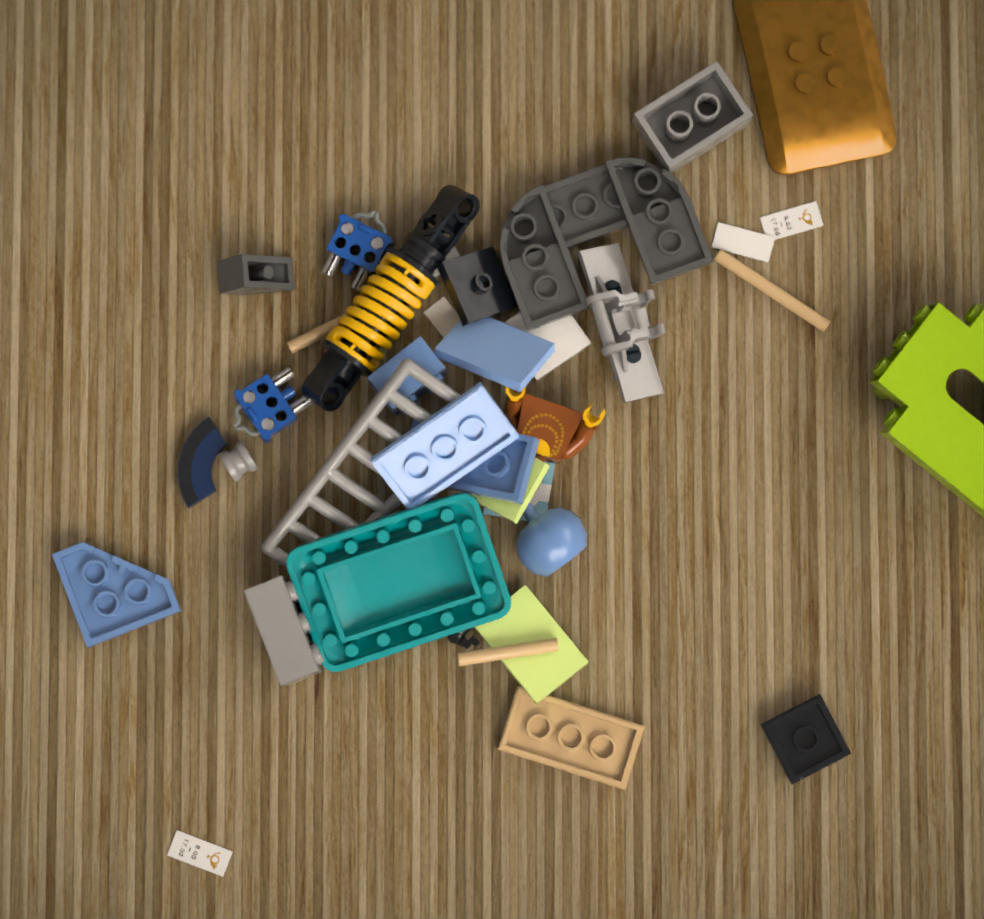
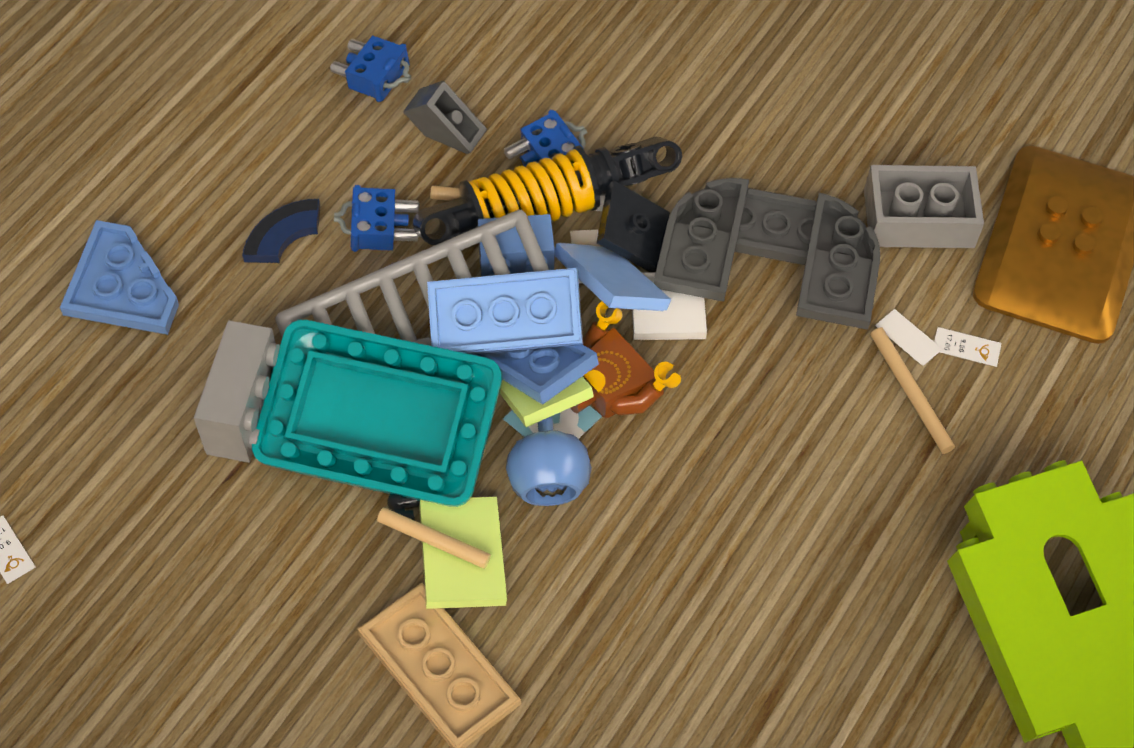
camera: 30 degrees right, 25 degrees down
(170, 259) = (375, 67): none -> blue piece
(238, 461) = (315, 243): light grey wheel -> none
(628, 318) = (753, 341): light grey piece -> none

